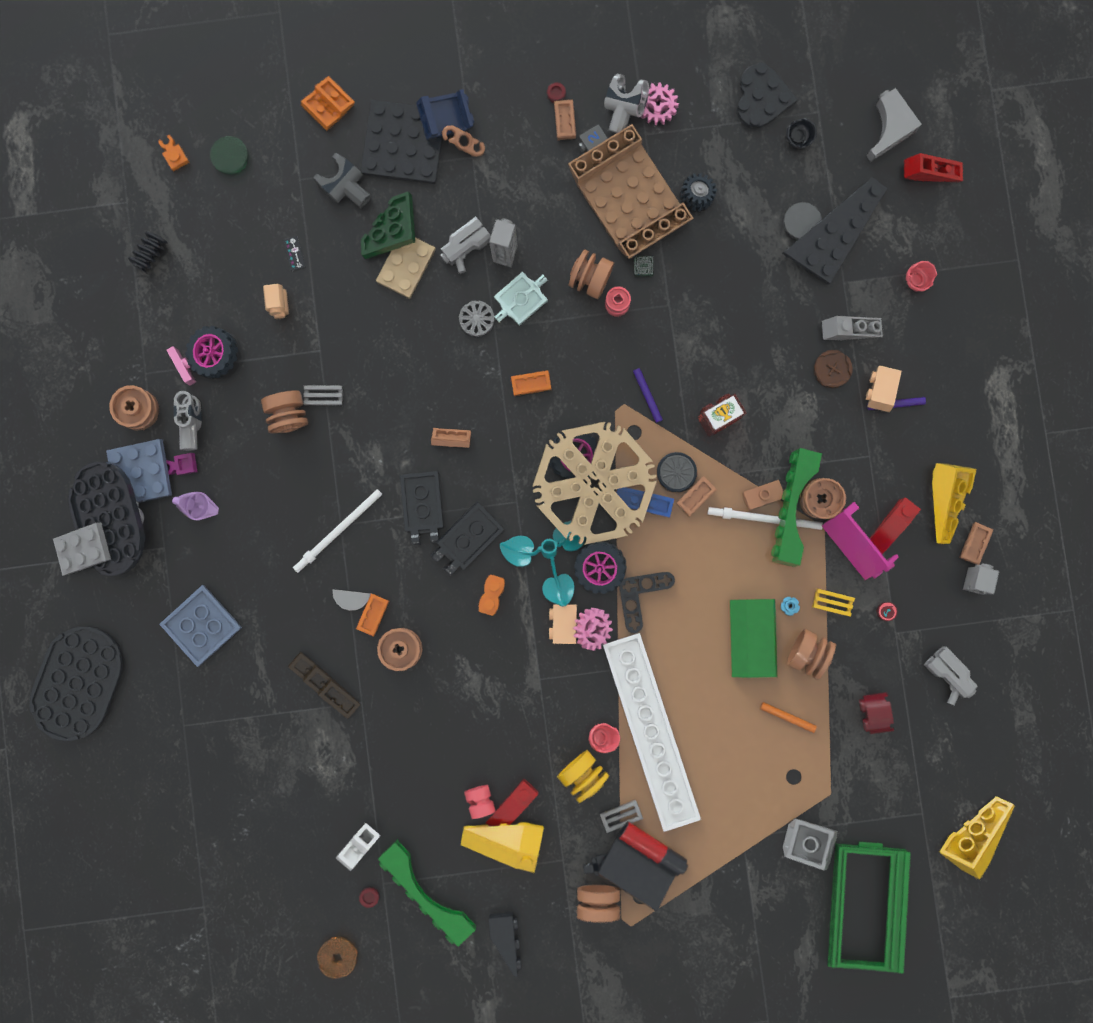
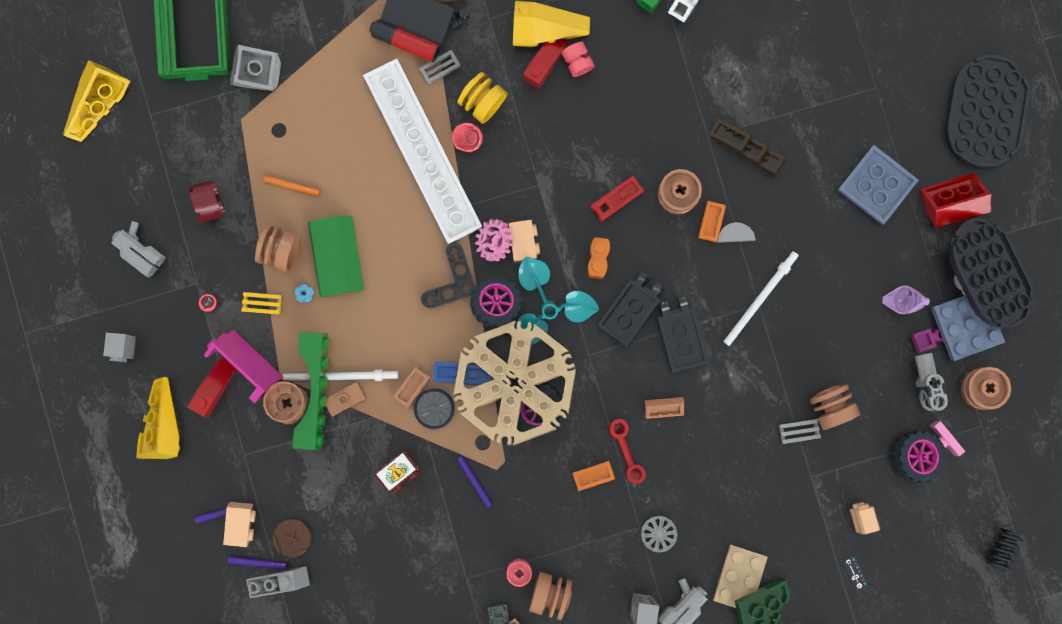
camera: 160 degrees right, 0 degrees up
(81, 549) = (1009, 240): light grey plate -> none
(126, 598) = (956, 200): none -> red slope
(462, 652) = (617, 198): none -> red plate
(491, 379) = (634, 473): none -> red piece
(520, 298) = (617, 561): light aqua plate -> none
(870, 350) = (257, 563): none -> dark purple bar
(976, 543) = (127, 383): nougat plate -> none

